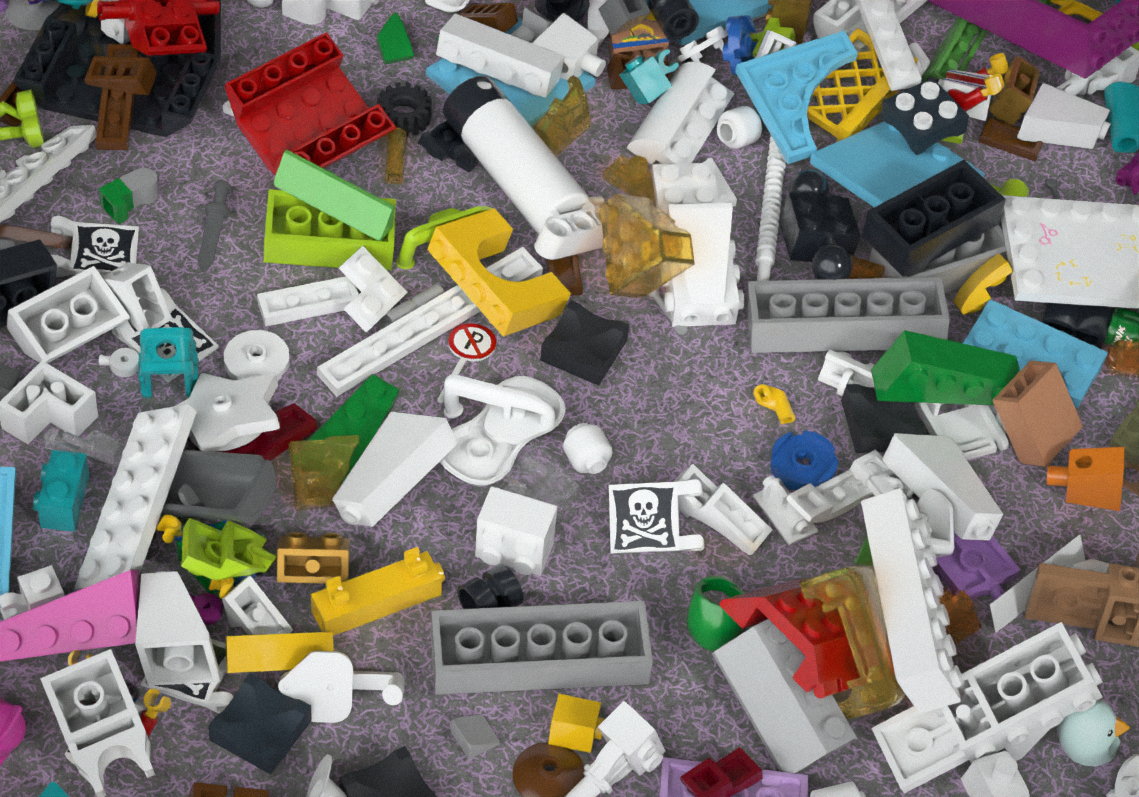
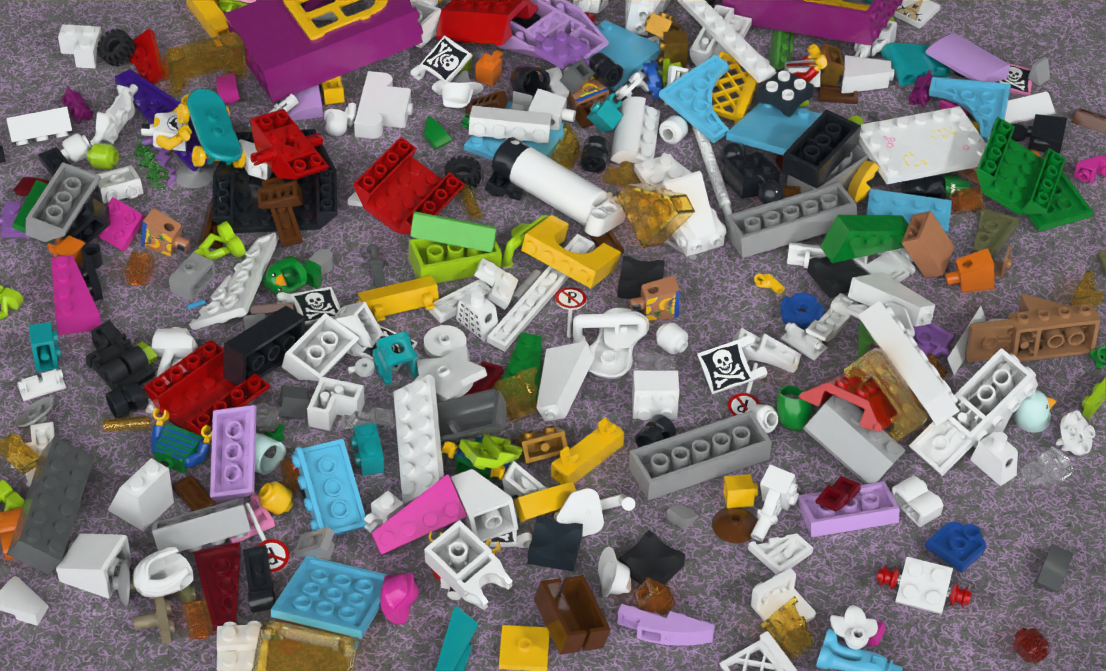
camera: 15 degrees left, 5 degrees down
(73, 194) = (282, 276): none -> green piece
(217, 271) = (400, 297): none -> yellow brick
(312, 320) = (477, 314): none -> white torso
(590, 383) = (658, 299): none -> nougat torso
(606, 133) = (595, 154): none -> black wheel
(653, 582) = (743, 401): none -> piece
(665, 616) = (766, 416): none -> white head

